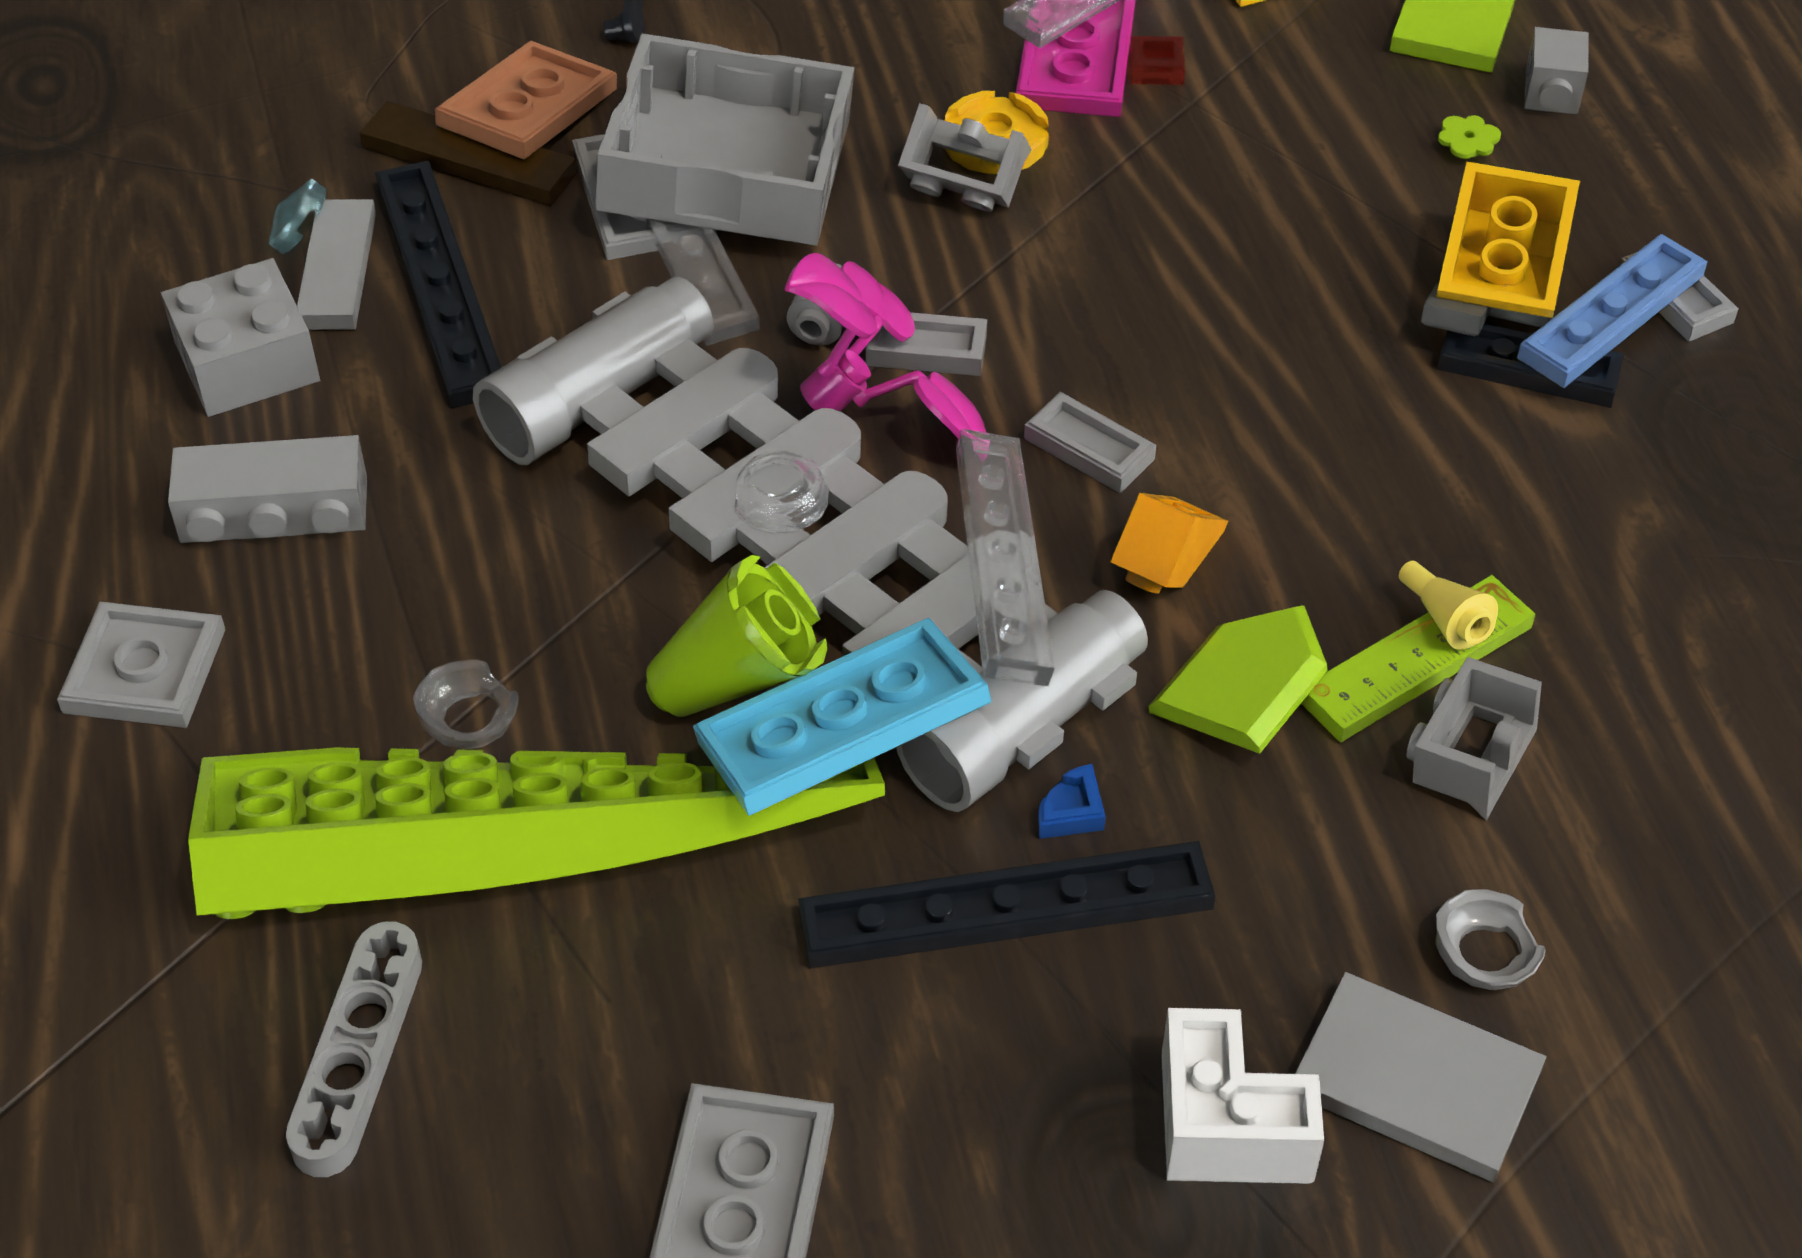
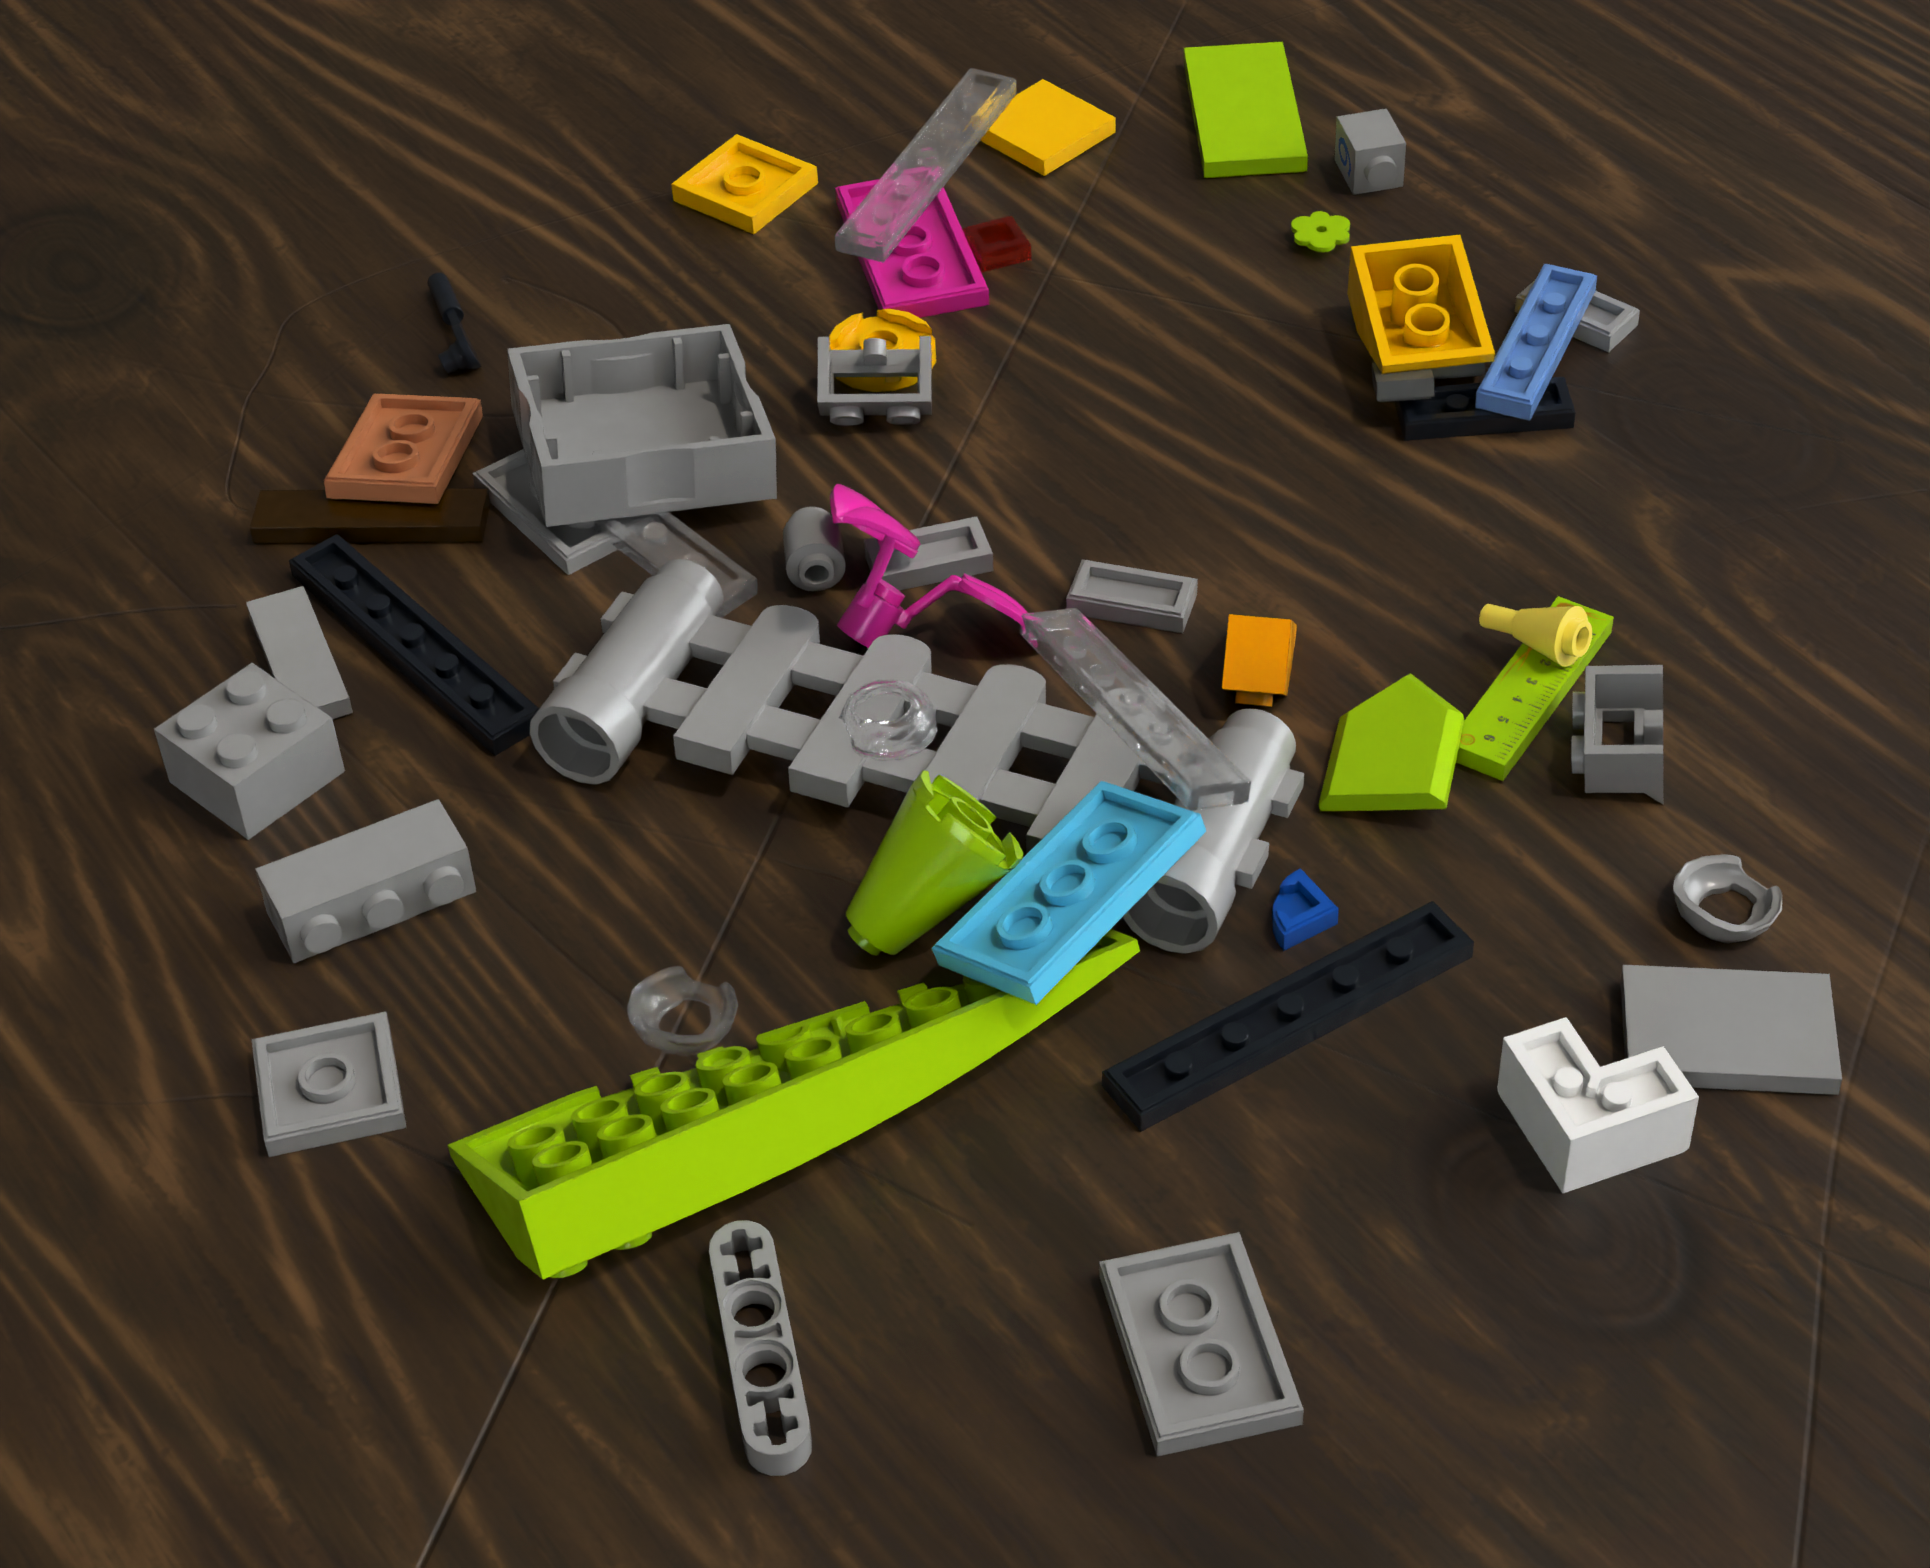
camera: 20 degrees left, 5 degrees down
(291, 214) = (228, 623): clear light blue tile -> none

